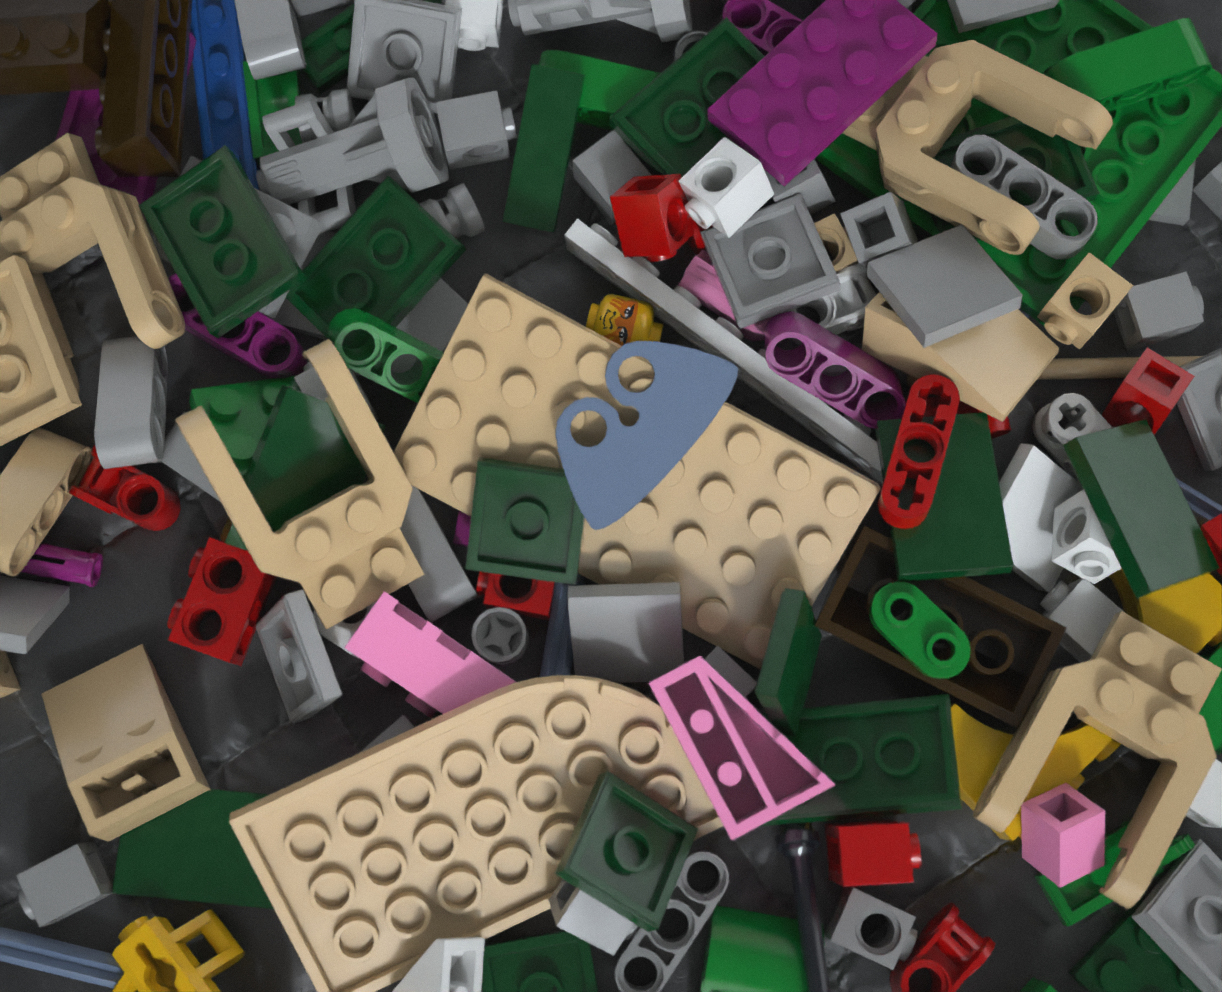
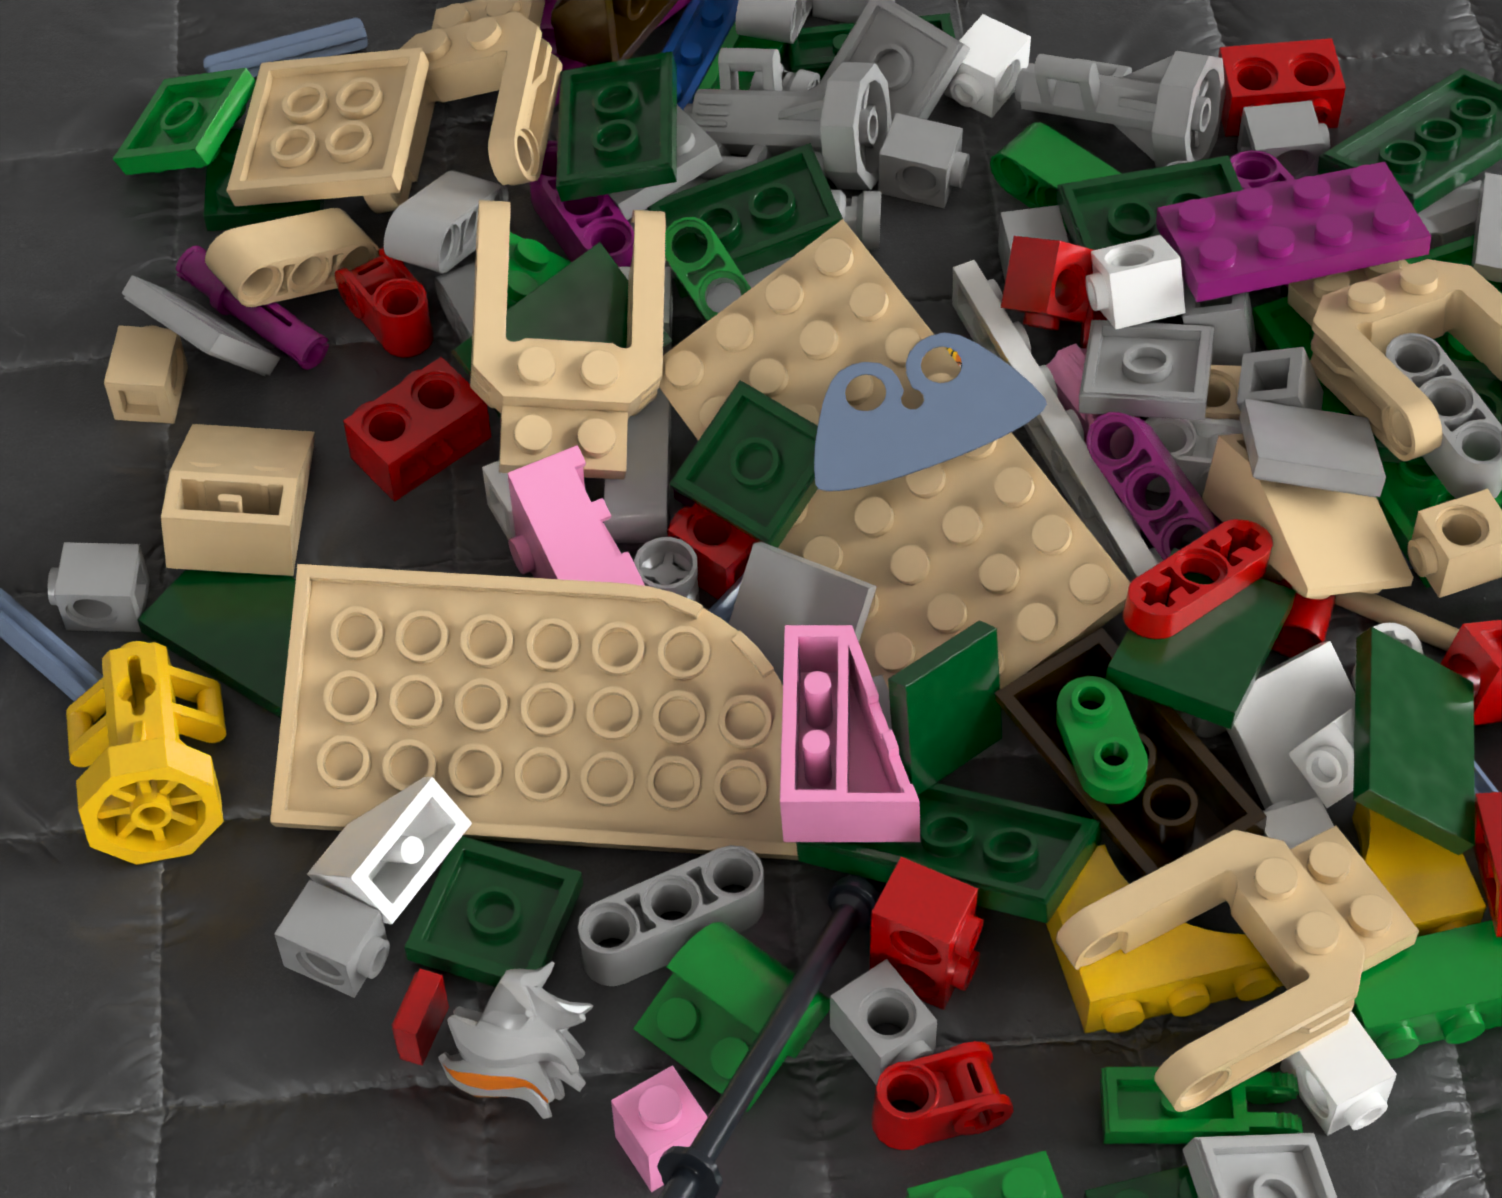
camera: 30 degrees right, 25 degrees down
(298, 657) = (455, 491): light grey tile -> none
(543, 148) = (978, 195): dark green tile -> none
(589, 918) = (605, 844): light grey brick -> none
(627, 851) = (668, 794): dark green tile -> none
(1063, 834) = (1146, 1014): bright pink brick -> none

